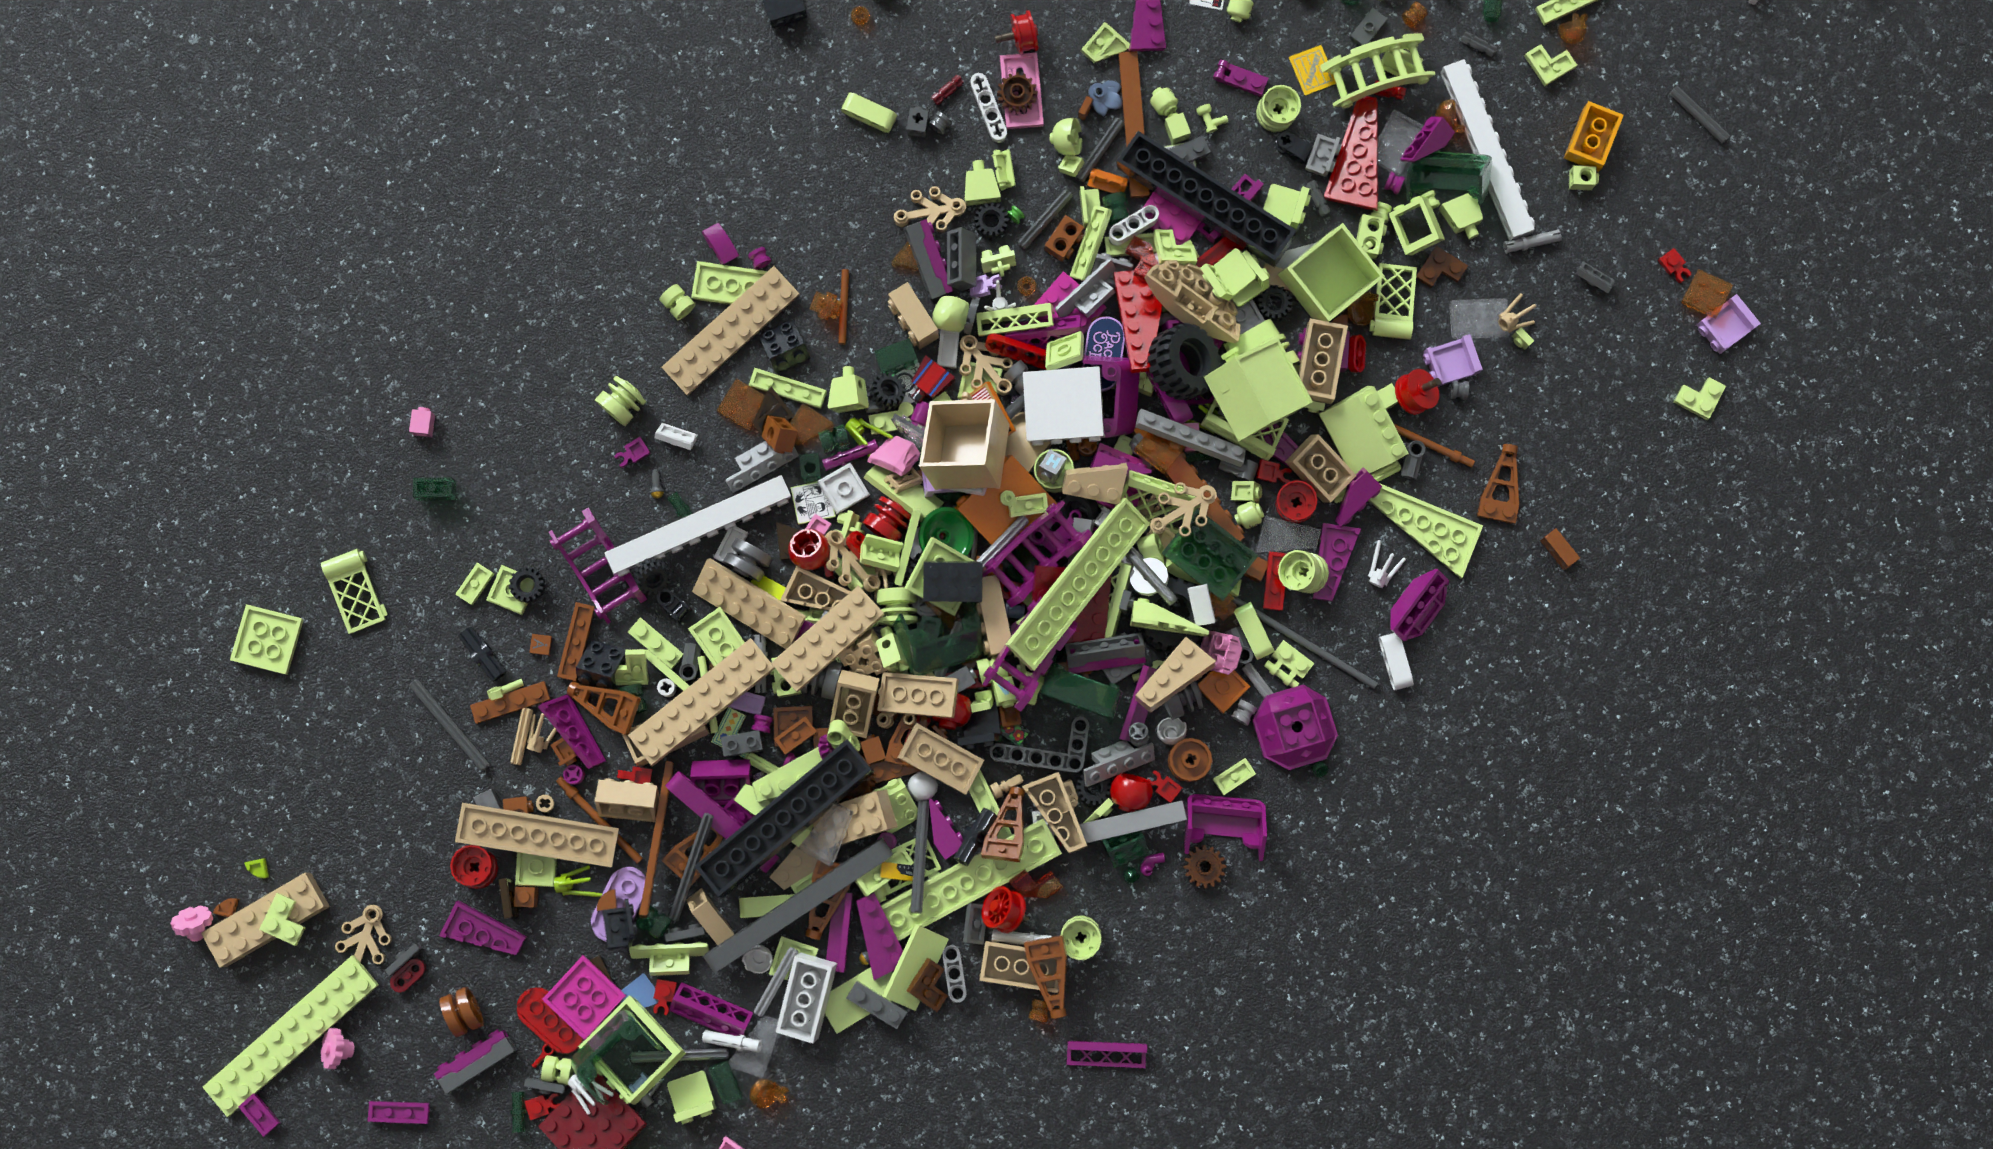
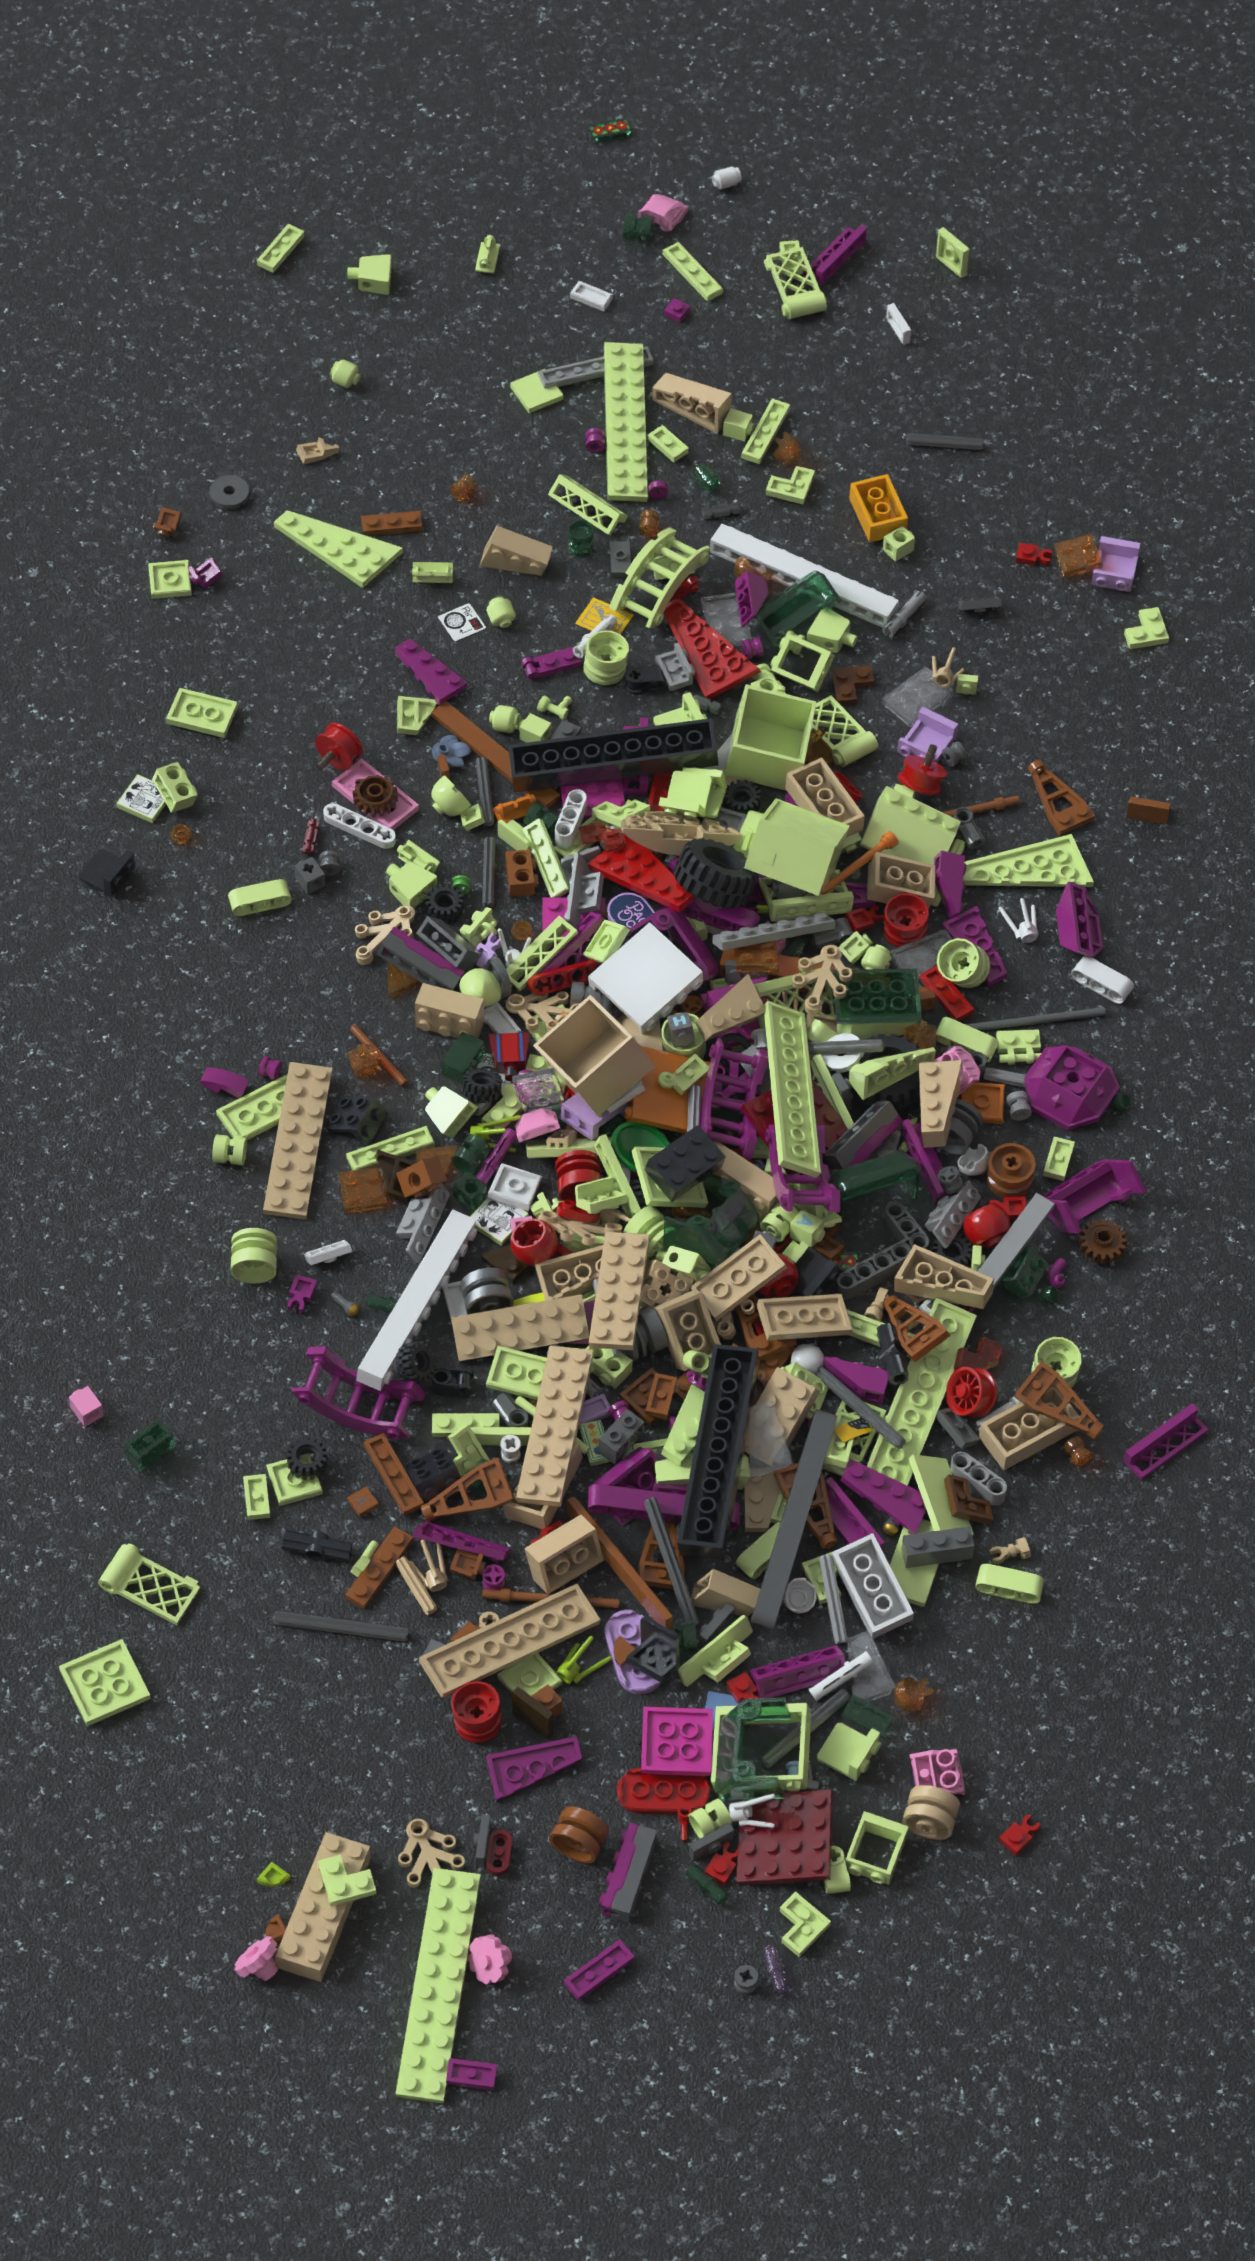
camera: 40 degrees left, 25 degrees down
(905, 1068) = (1009, 1583): none -> yellowish green beam
(930, 1044) = (1021, 1547): none -> tan piece
(1201, 605) = (906, 1035): white tile -> none
(1290, 81) = (606, 625): none -> white pin
(1336, 430) = (887, 842): none -> orange piece

